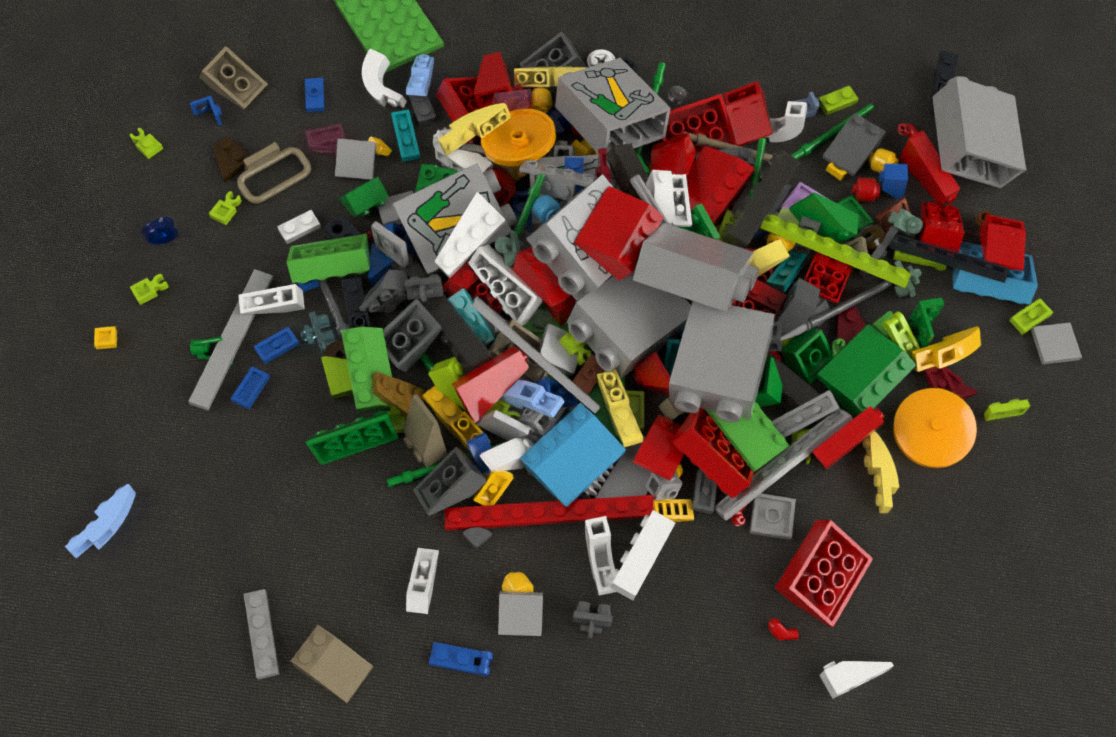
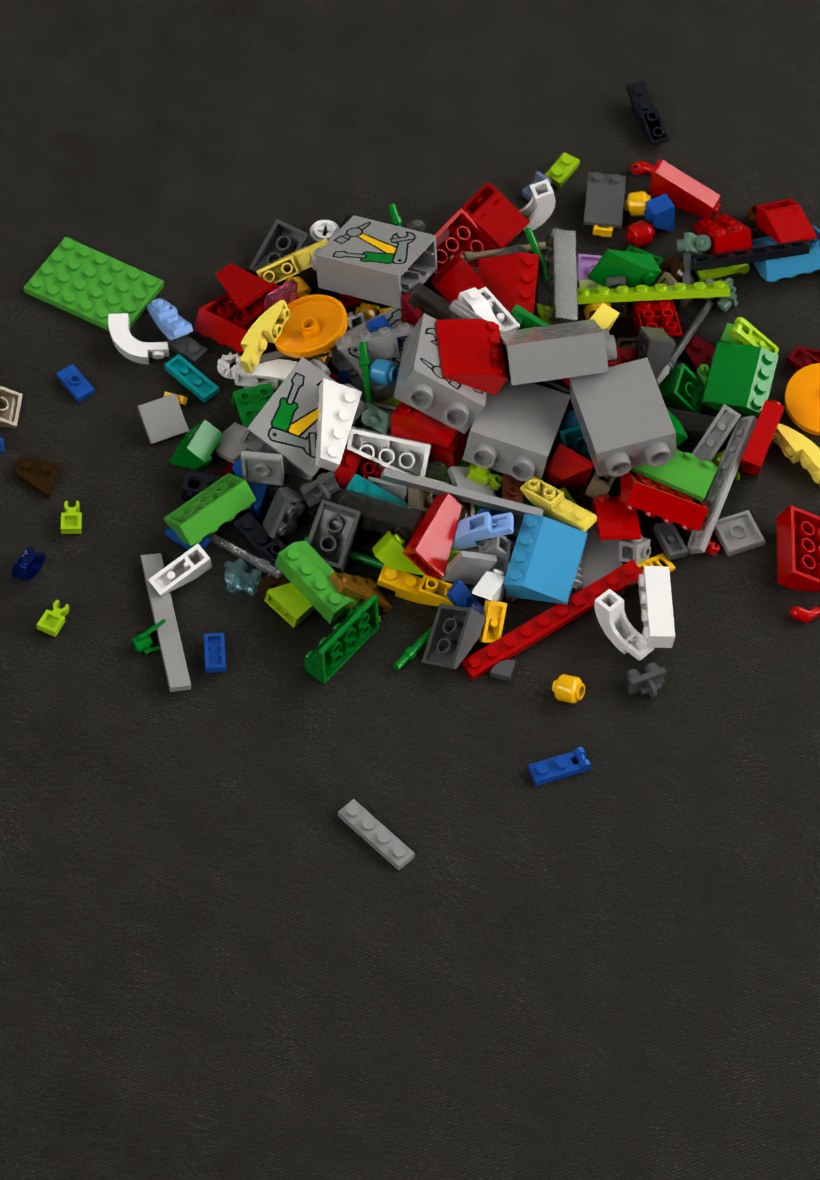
camera: 30 degrees left, 10 degrees down
(105, 338) = (47, 677): yellow plate -> none
(111, 516) = (170, 818): light blue slope -> none
(264, 159) = (75, 460): dark tan bar -> none
(276, 345) = (211, 607): blue plate -> none
(299, 226) = (151, 502): white plate -> none
(325, 138) = (119, 416): clear pink wing -> none
(331, 664) = (455, 823): dark tan slope -> none
(421, 581) = (485, 724): white slope -> none
(423, 434) = (404, 604): dark tan slope -> none
(520, 613) = (586, 704): light grey tile -> none
(787, 271) = (621, 330): teal plate -> none
(806, 149) = (564, 222): green bar -> none
(883, 217) = (671, 246): copper plate -> none
(921, 320) = (761, 318): green bracket -> none
(948, 351) = (796, 333): yellow slope -> none
(978, 132) = (707, 139): light grey brick -> none

